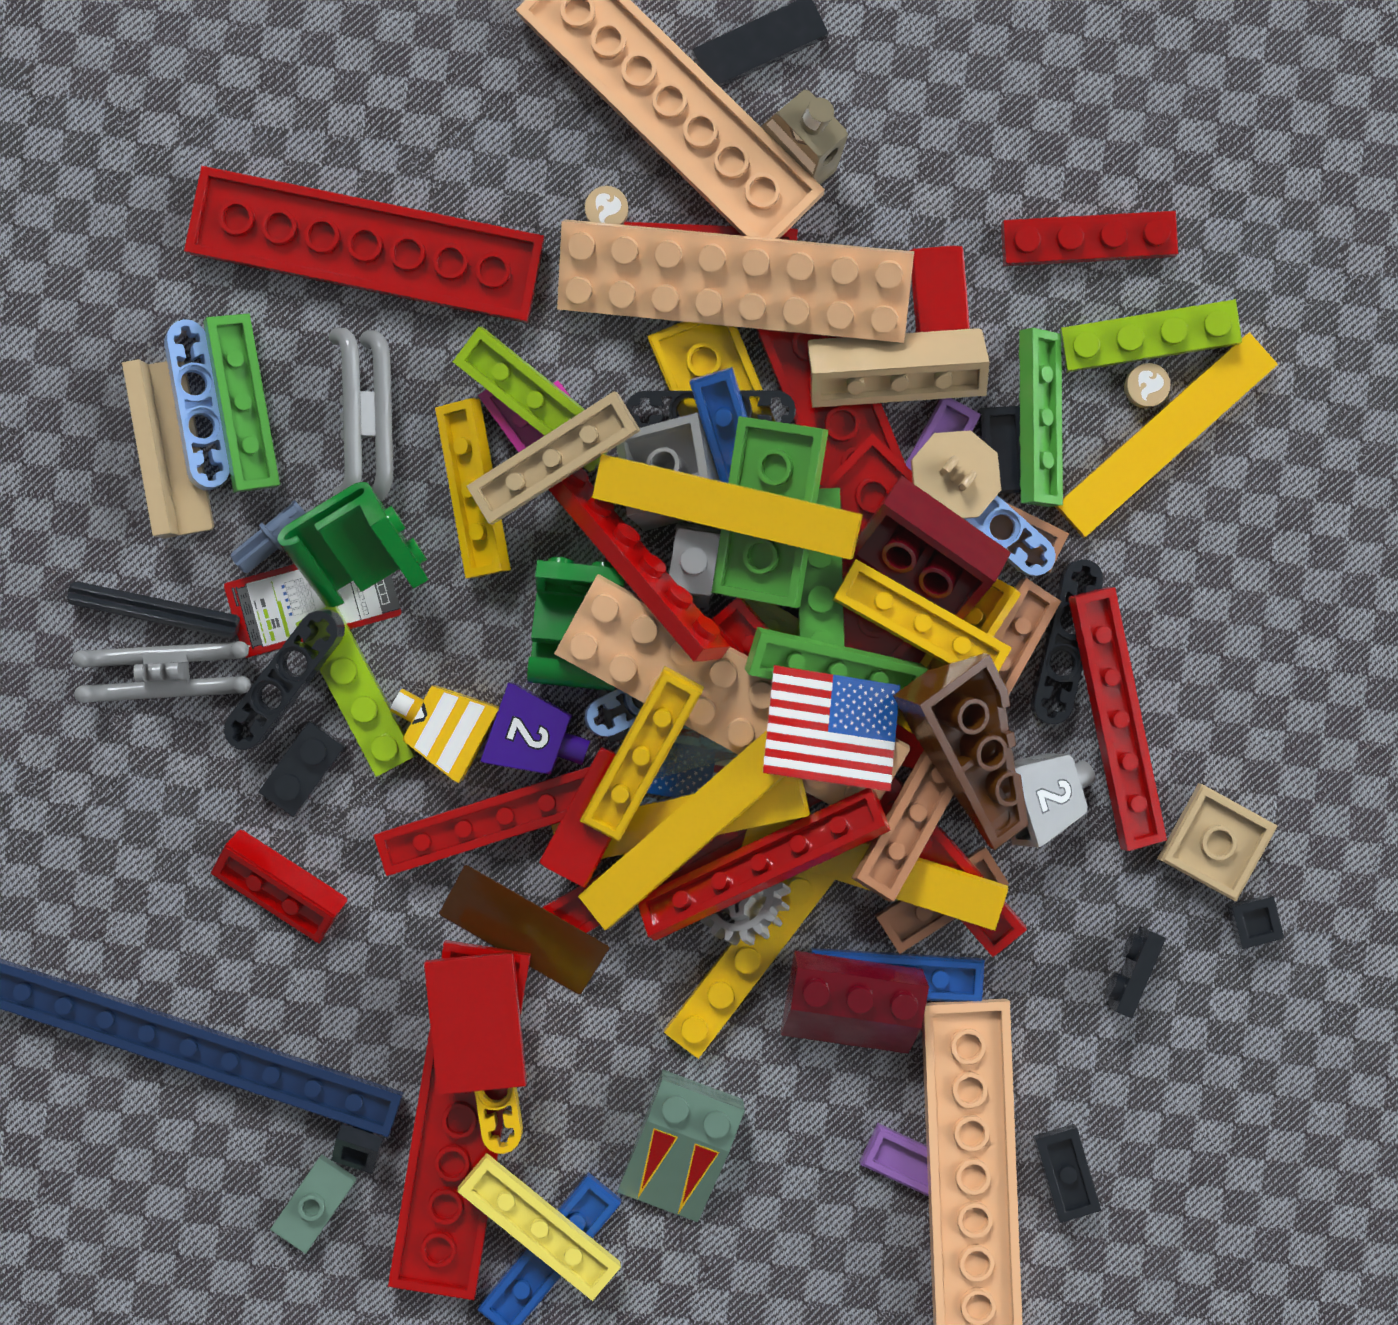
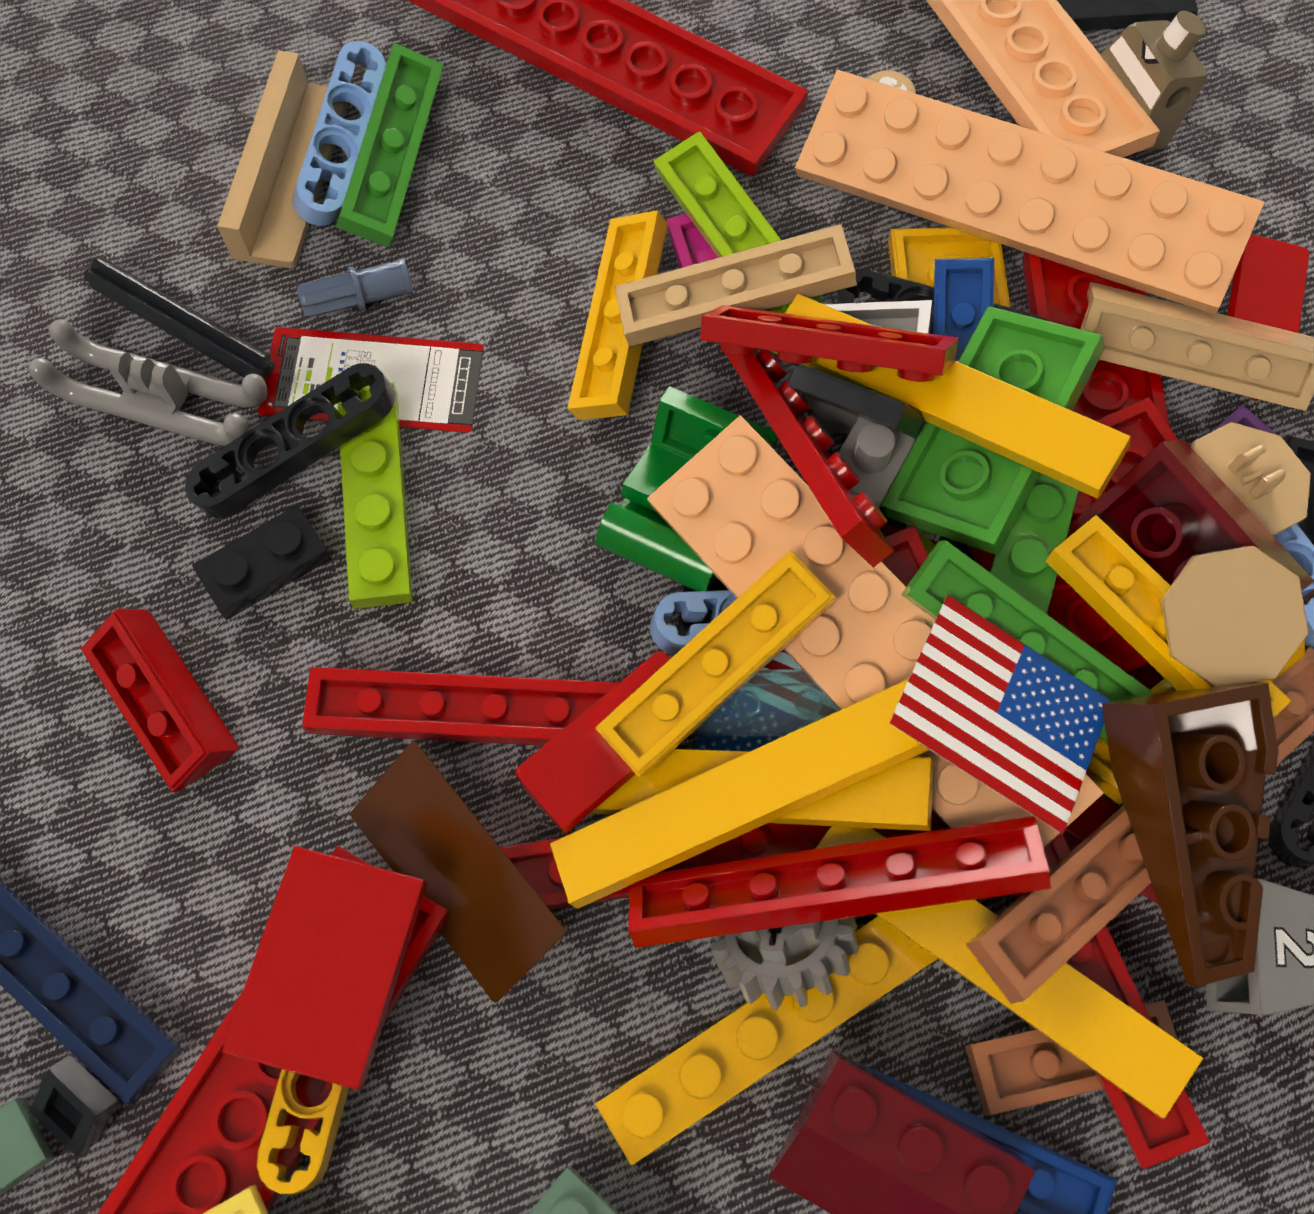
camera: 20 degrees right, 20 degrees down
(351, 541) = (445, 310): green piece -> none
(365, 412) = (521, 193): light grey piece -> none
(445, 727) = (469, 570): torso -> none
(531, 734) = (572, 616): dark purple torso -> none
(636, 499) = (853, 345): none -> red plate
(670, 534) = (856, 400): none -> black tile
(959, 613) = (1234, 616): none -> tan piece

